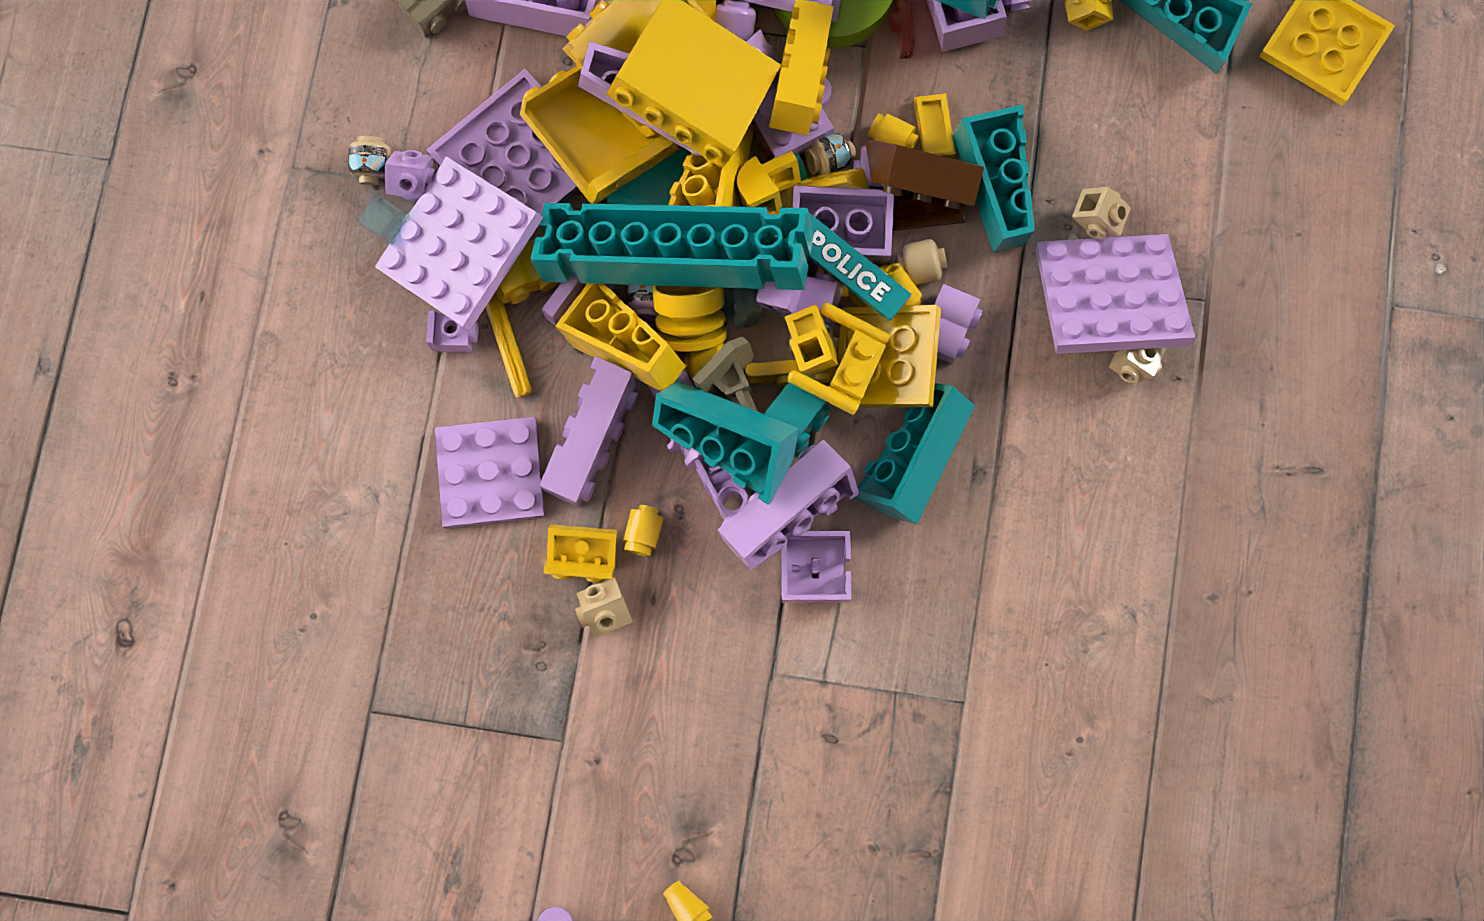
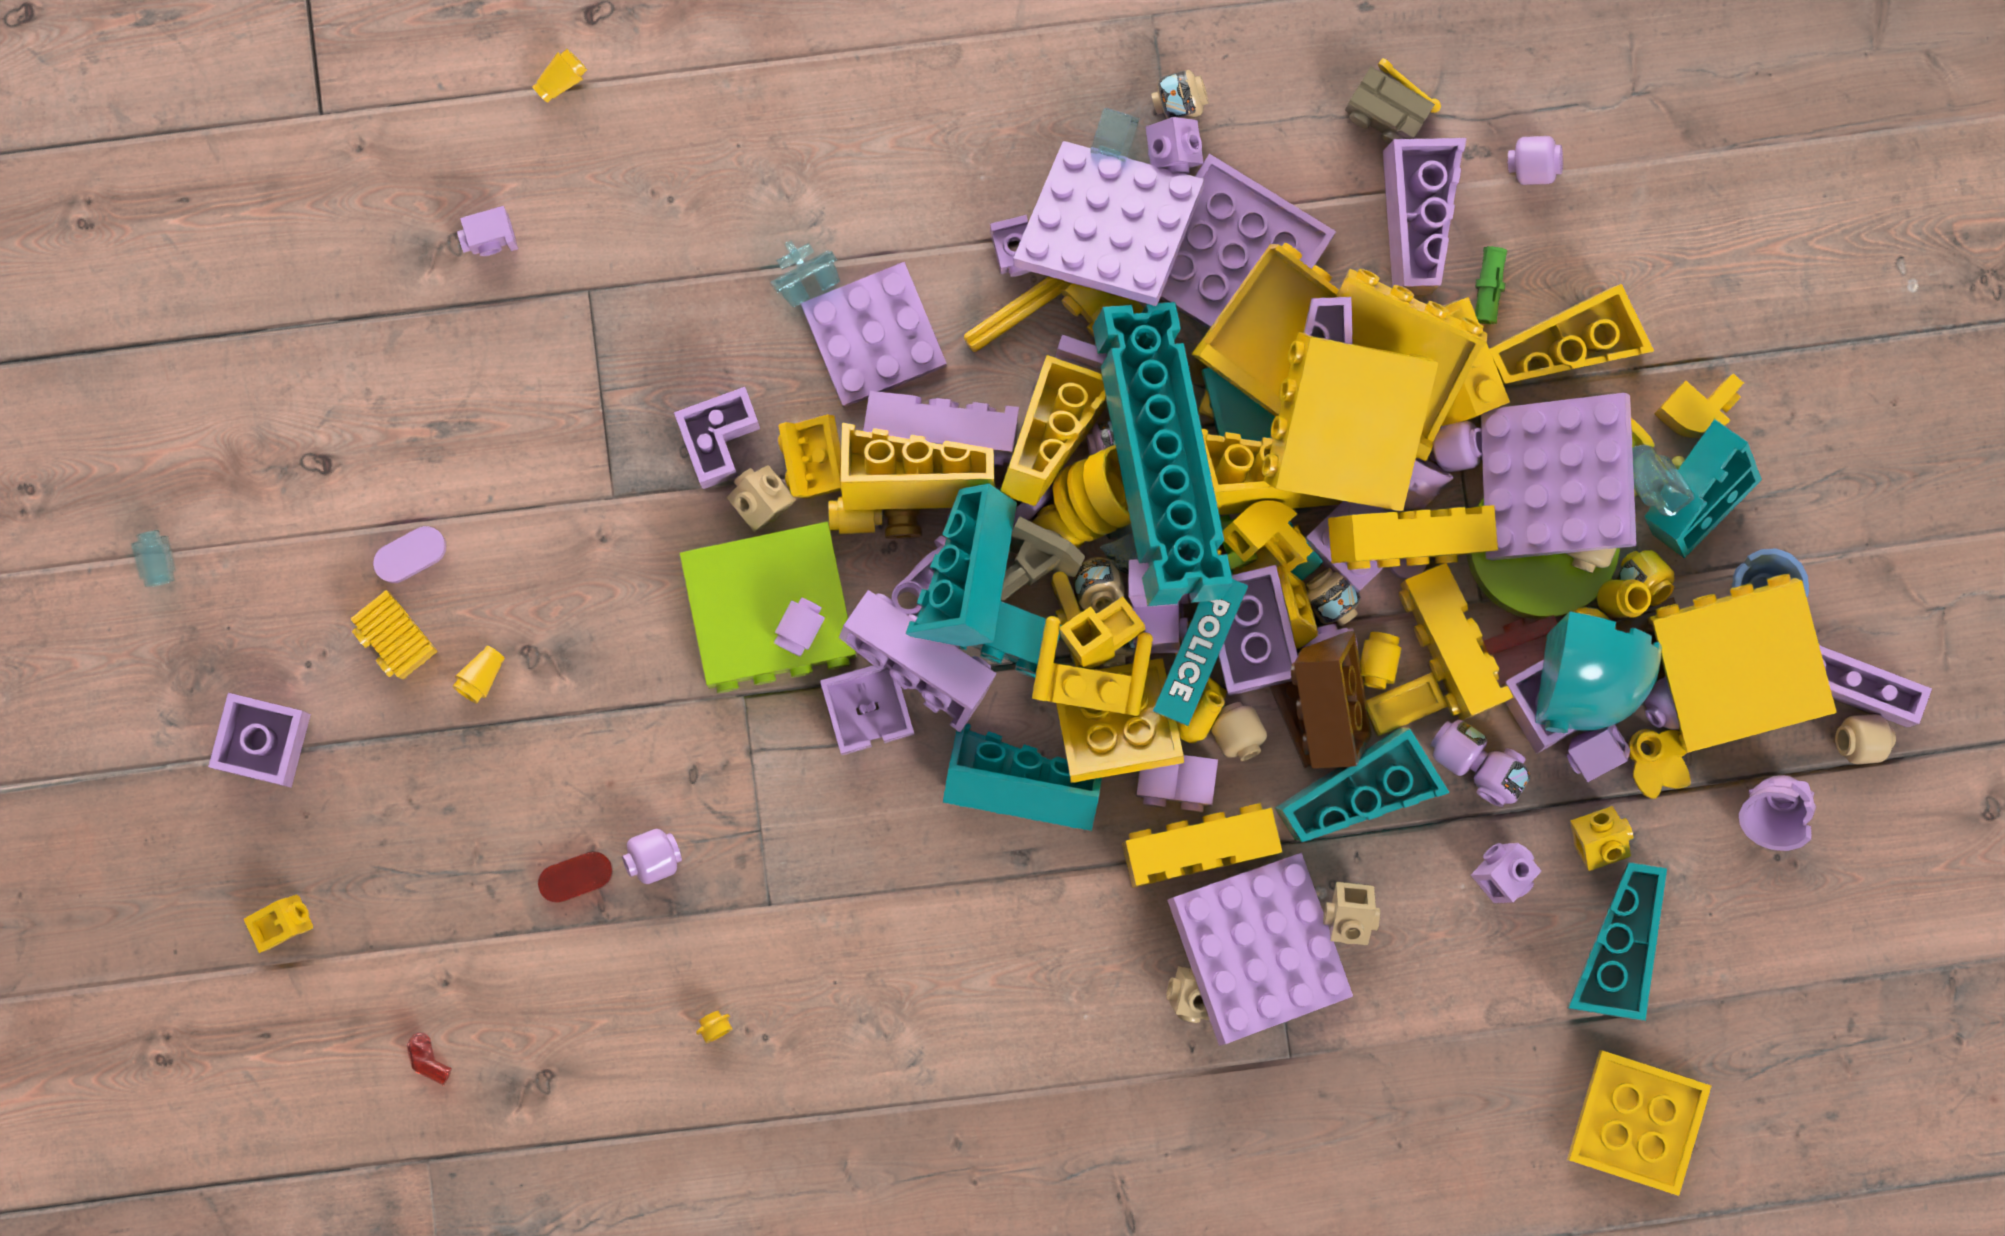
camera: 65 degrees right, 5 degrees up
(168, 682) = (560, 75): none -> yellow cone
(287, 788) = (487, 232): none -> lavender brick
(416, 499) = (820, 266): none -> clear light blue hips
(528, 637) = (707, 429): none -> lavender brick
(622, 468) = (908, 473): none -> yellow wedge
(661, 491) = (902, 523): none -> pearl gold wheel
(701, 629) = (742, 594): none -> lime brick
(730, 602) = (799, 626): none -> lavender brick
(767, 339) = (1098, 584): none -> head
(894, 870) = (575, 877): none -> clear red tile
(895, 794) = (652, 856): none -> lavender head
(899, 69) = (1453, 643): none -> yellow wedge
(983, 91) = (1459, 747): none -> lavender head
(1012, 320) = (1202, 846): none -> yellow wedge
(1017, 65) = (1502, 777): none -> lavender head
(1061, 781) = (714, 1026): none -> yellow plate
(1098, 82) = (1506, 872): none -> lavender brick

